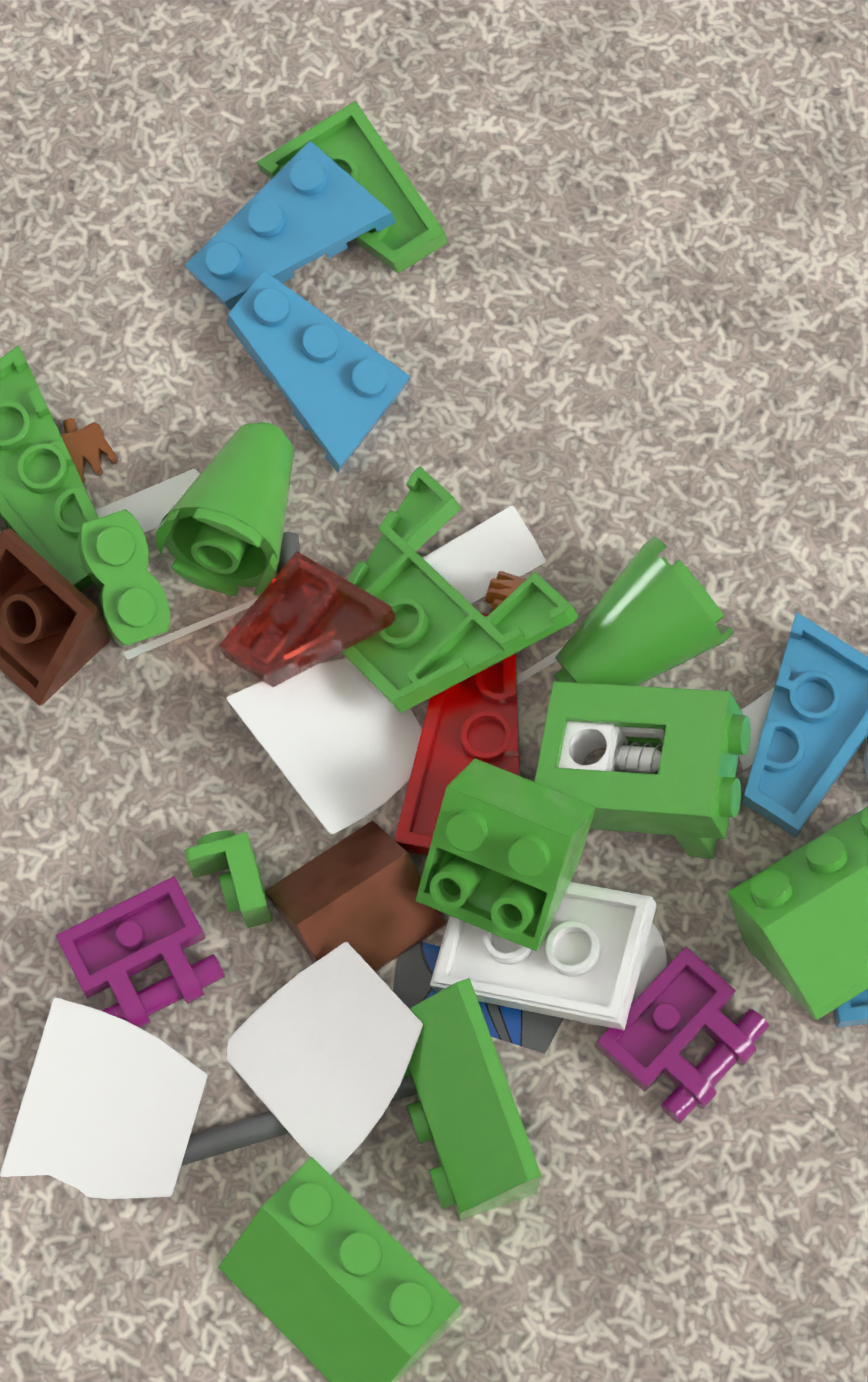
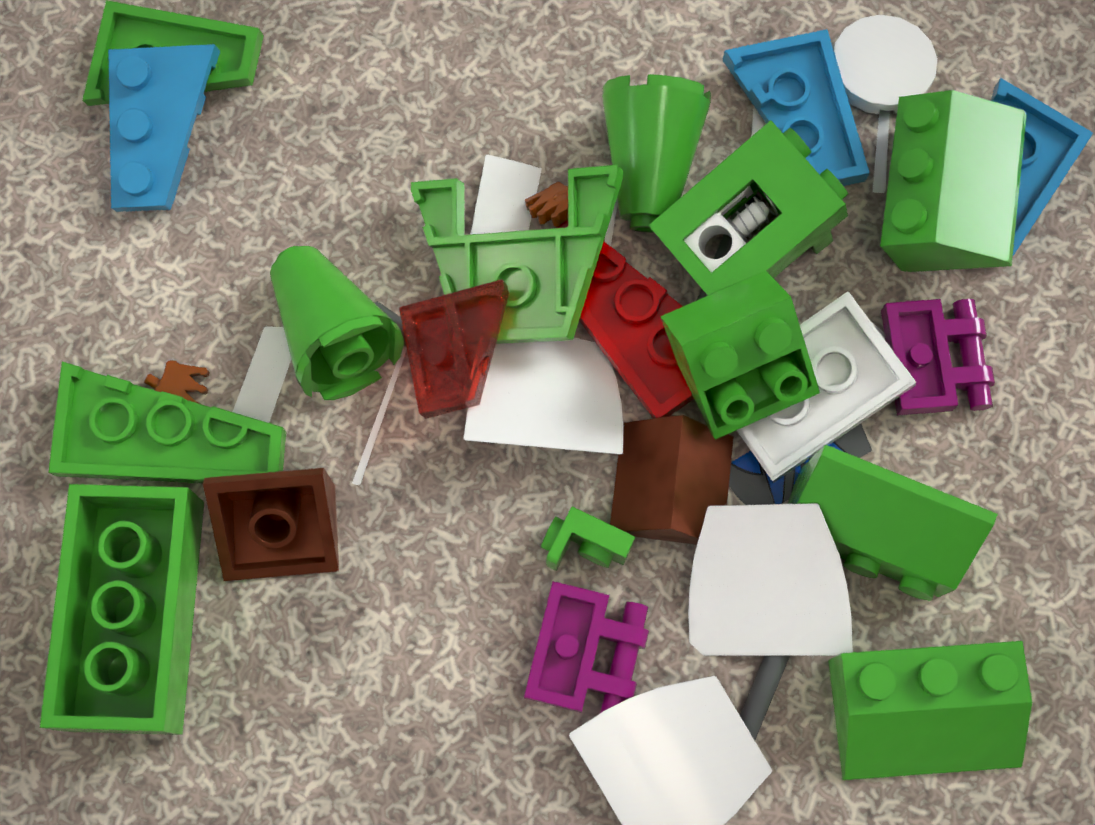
camera: 50 degrees left, 5 degrees up
(117, 562) = (300, 427): bright green brick -> none
(321, 368) = (271, 185): dark azure wing -> none

